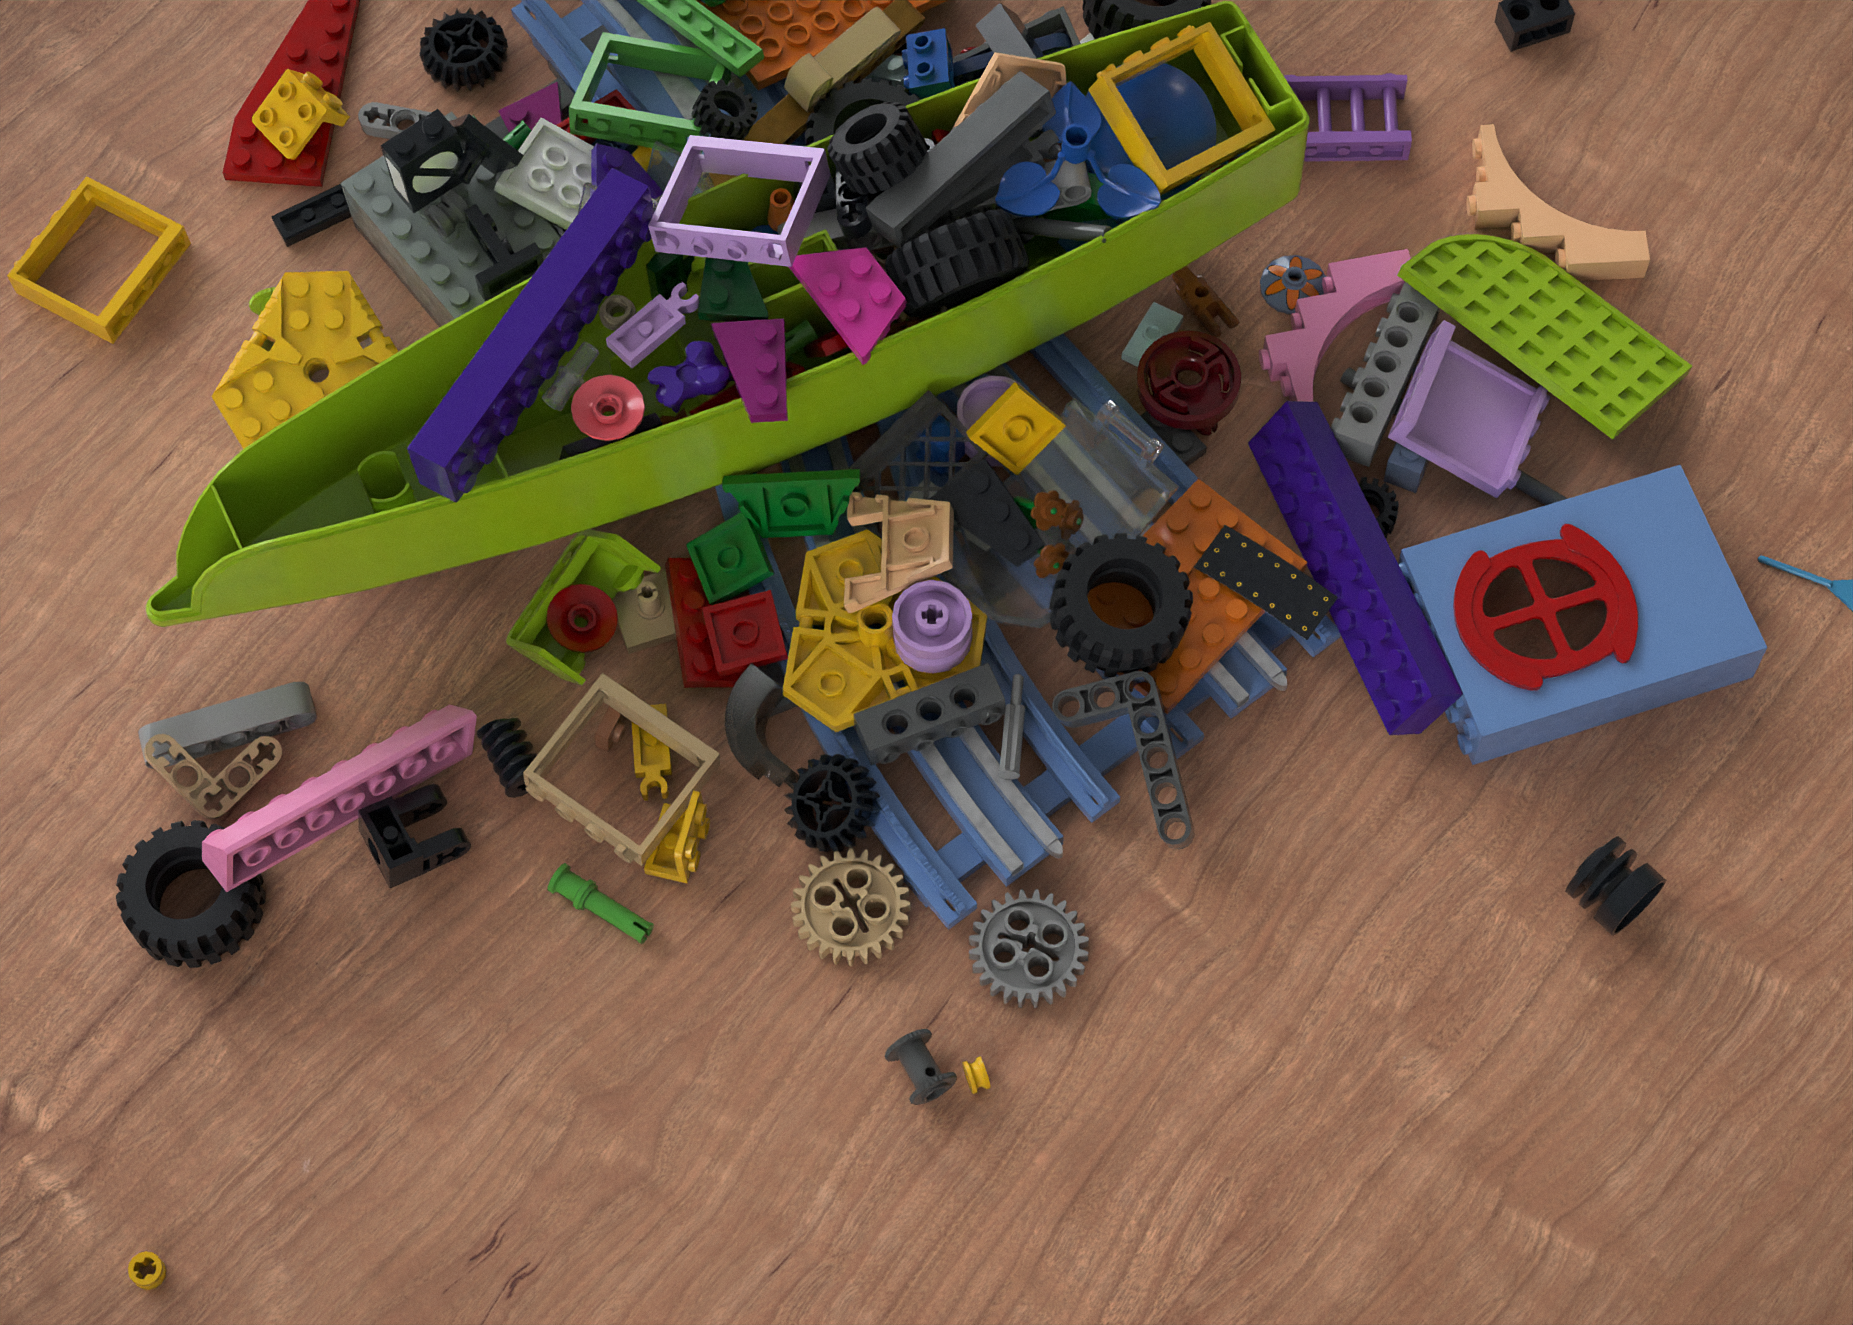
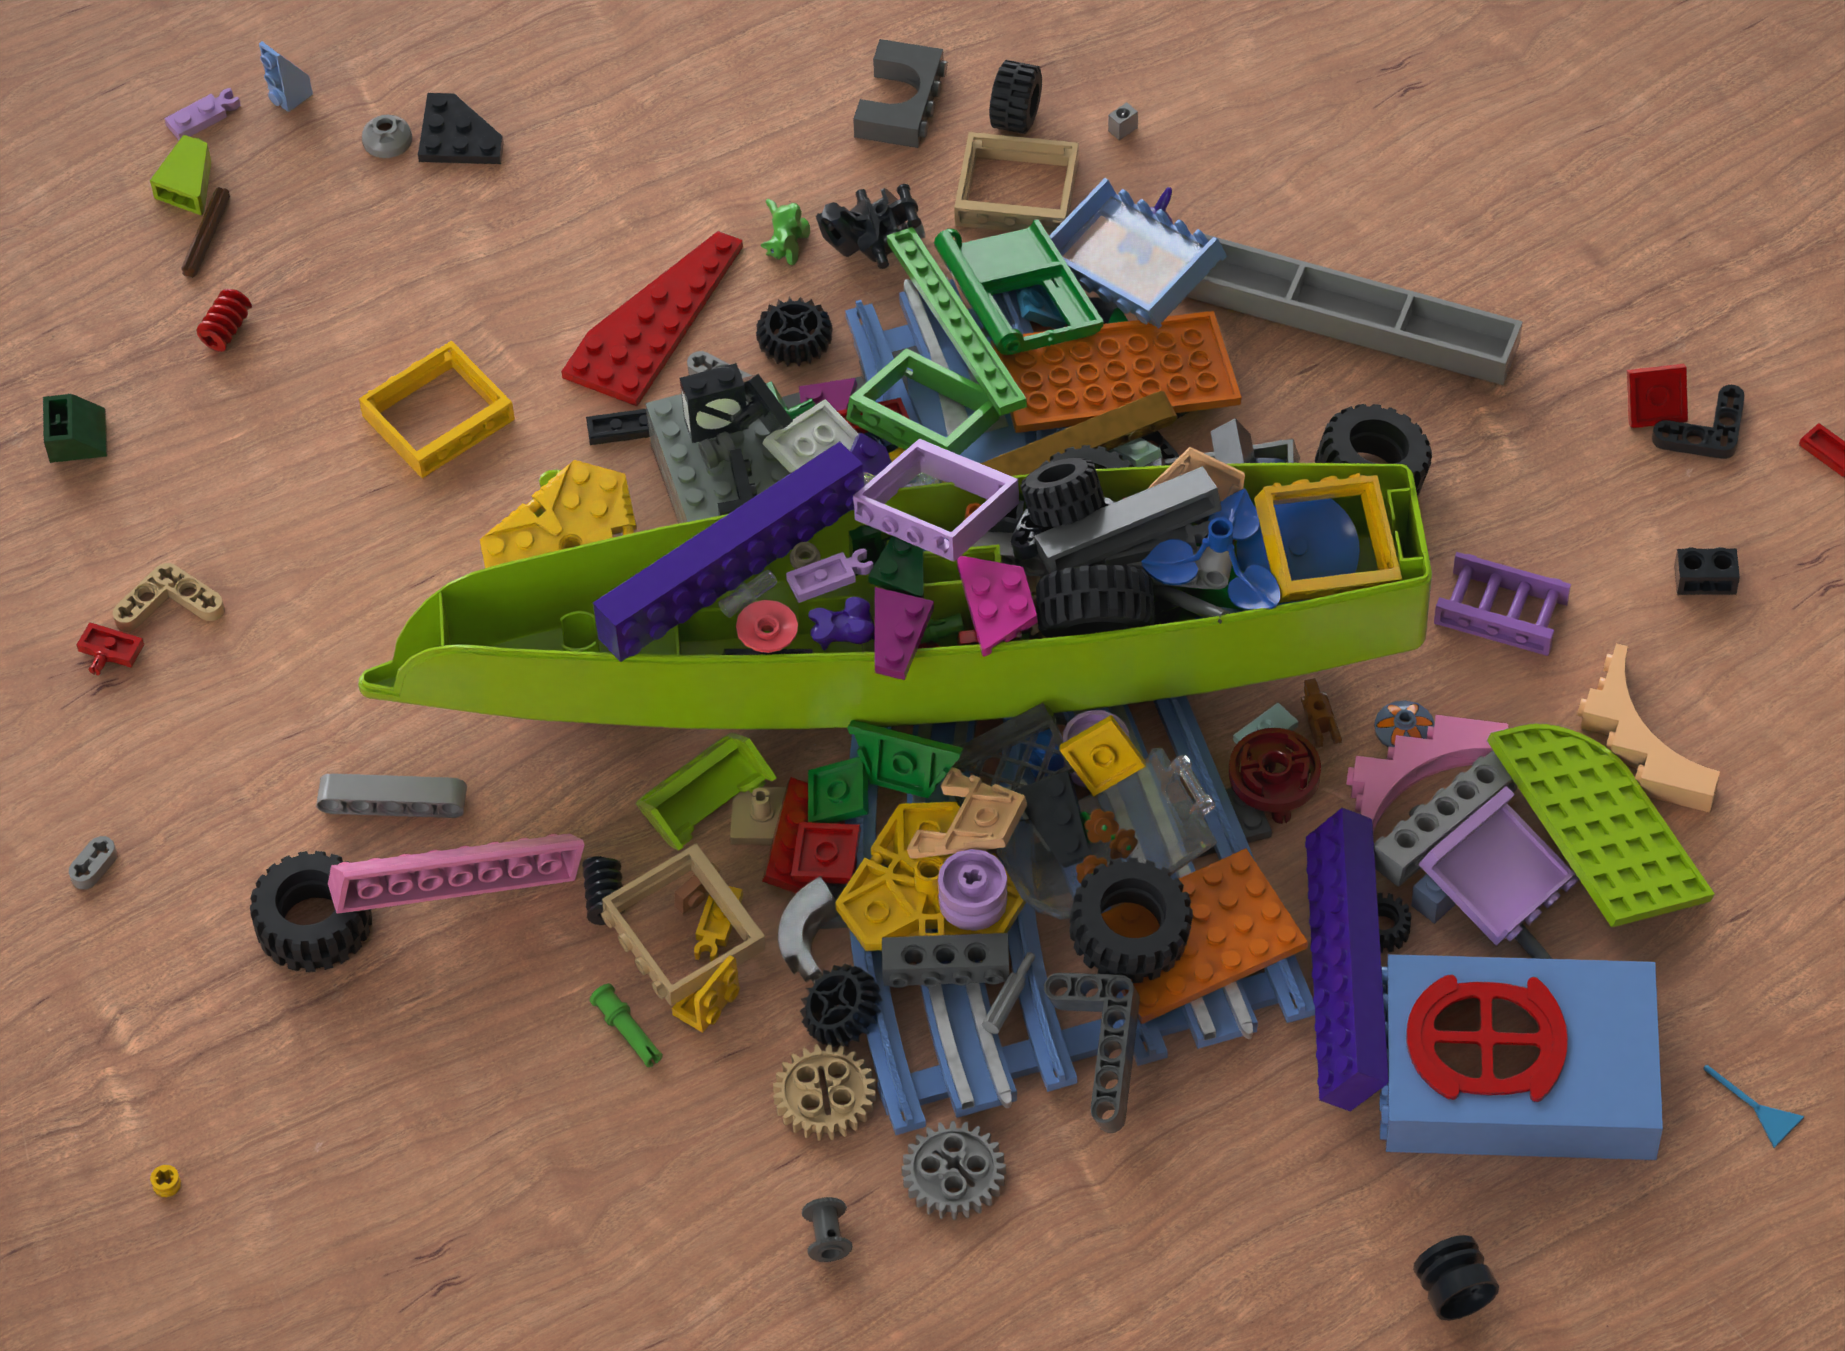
camera: 20 degrees right, 10 degrees down
(205, 783) = (356, 834): tan beam -> none
(296, 111) = (638, 338): yellow bracket -> none
(390, 845) = (483, 935): black brick -> none
(586, 603) = (706, 789): red dish -> none
(729, 100) = (979, 428): black tyre -> none
(840, 60) = (1088, 425): tan beam -> none
(928, 63) = (1161, 445): blue brick -> none
(976, 1074) = (869, 1252): yellow bush -> none
(1266, 581) = (1266, 945): black sticker -> none

